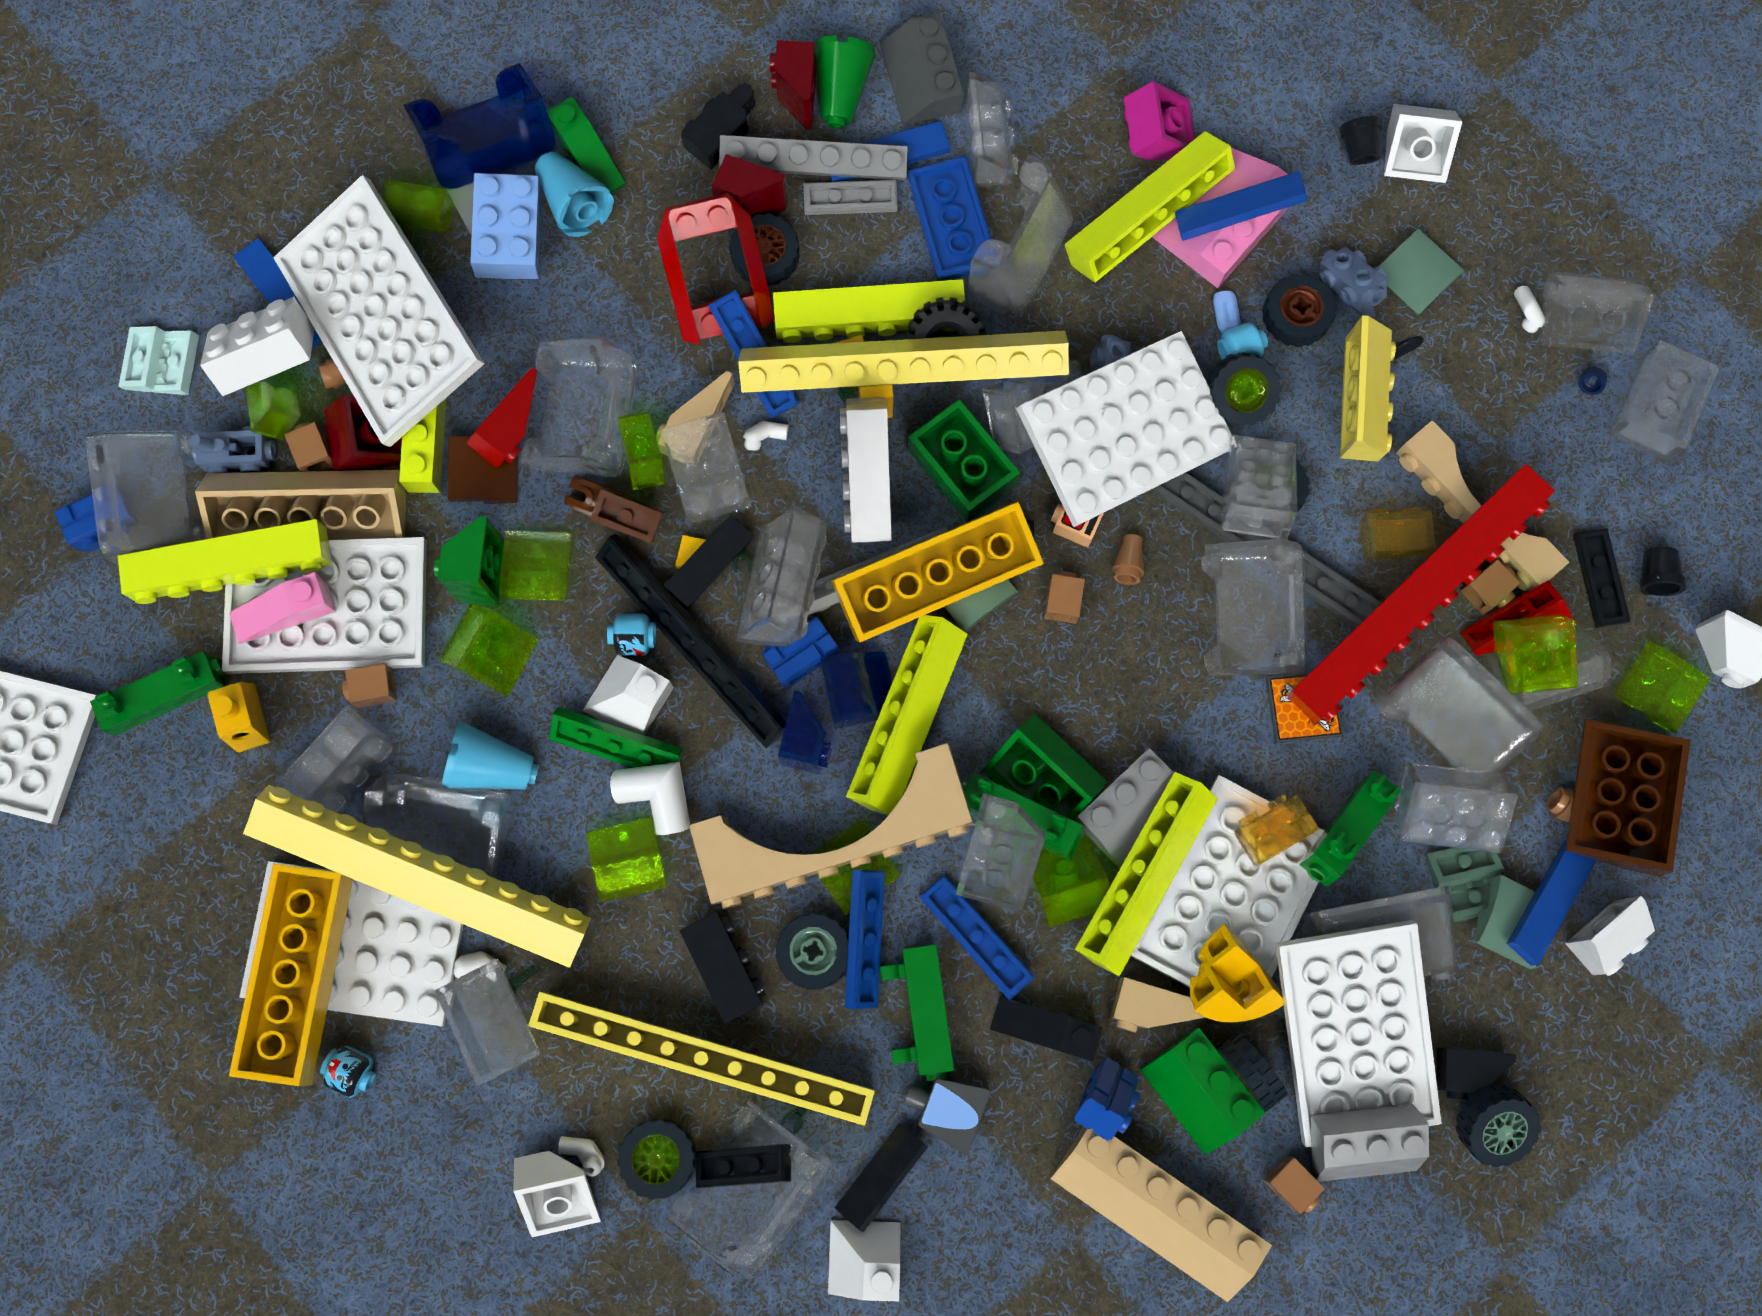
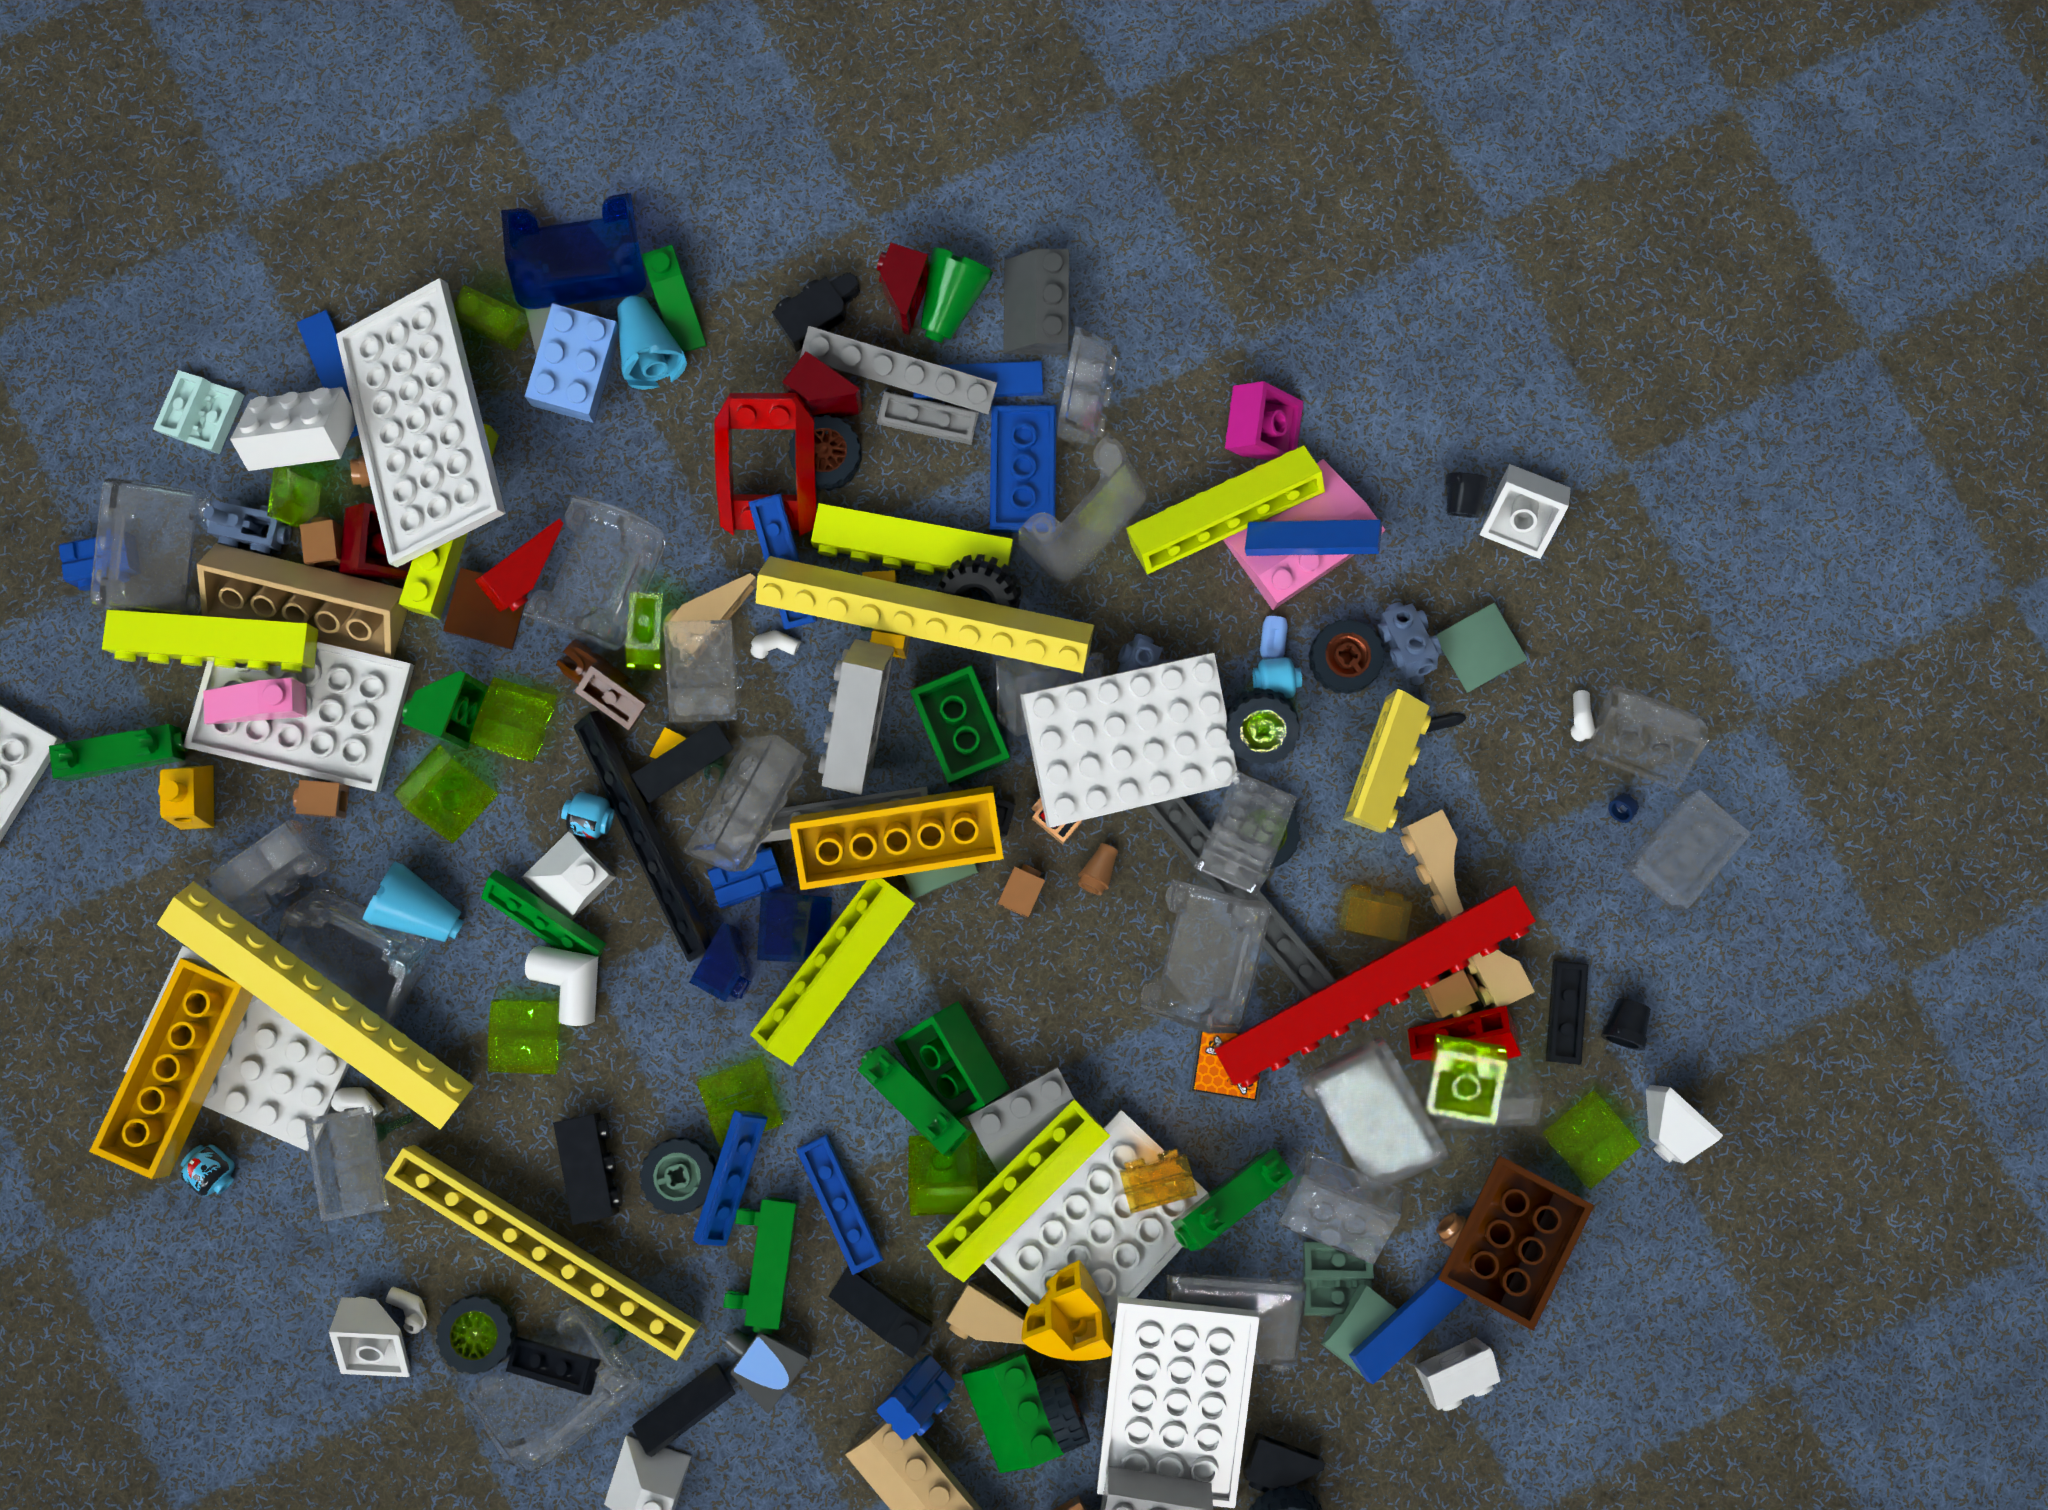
camera: 15 degrees right, 5 degrees up
(928, 808) = (630, 1073): tan arch -> none
(1000, 854) = (878, 1135): clear slope -> none

